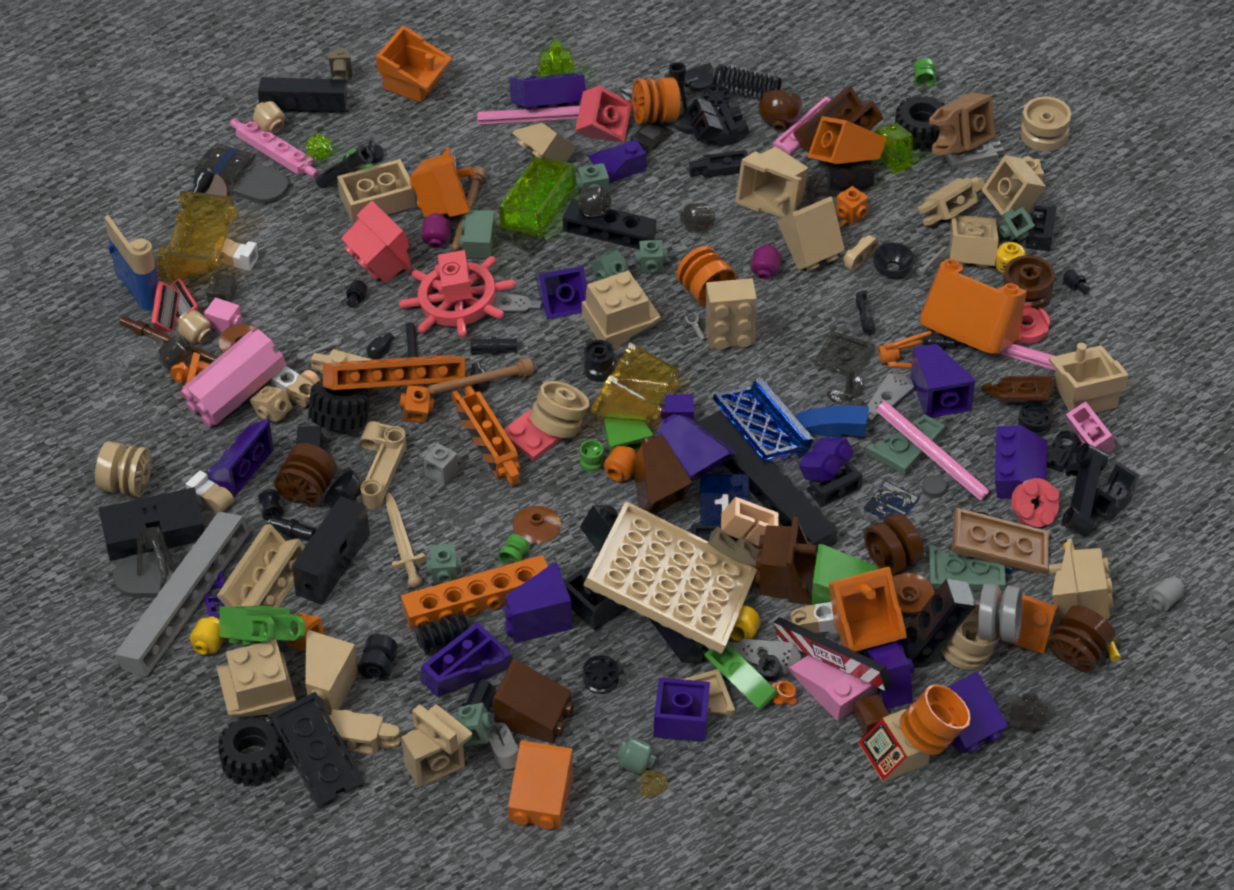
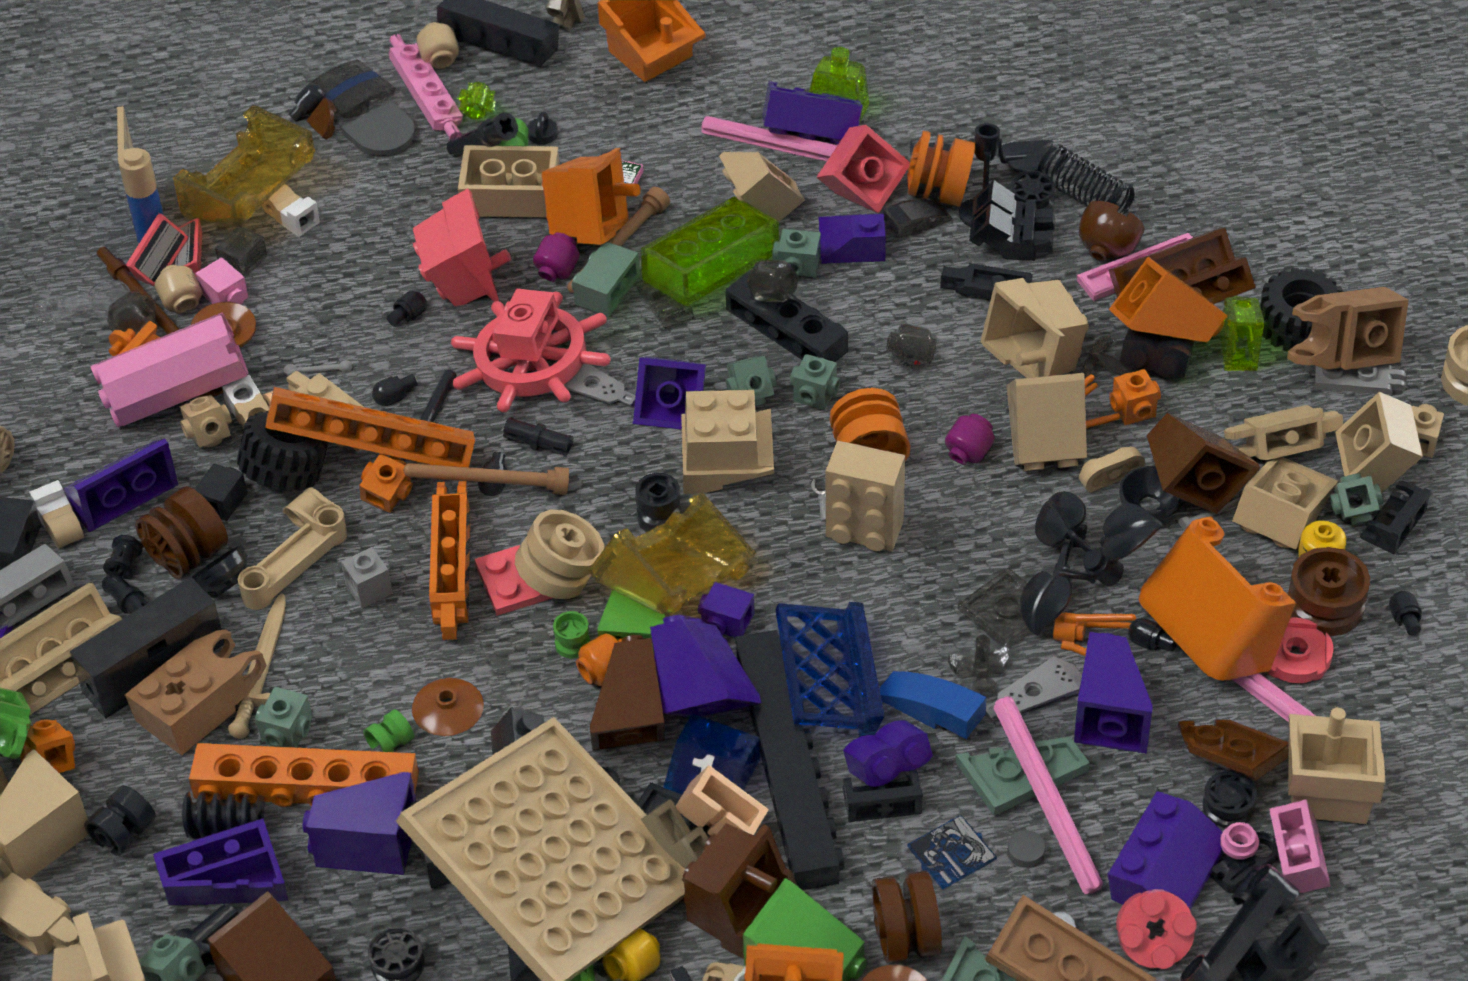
camera: 25 degrees right, 0 degrees up
(375, 568) = (194, 691): none -> medium nougat brick
(851, 289) = (1124, 532): none -> black plant
(916, 232) = (1198, 463): none -> reddish brown slope
(924, 72) = (1347, 240): bright green wheel -> none
(1055, 439) = (1239, 833): none -> bright pink plate

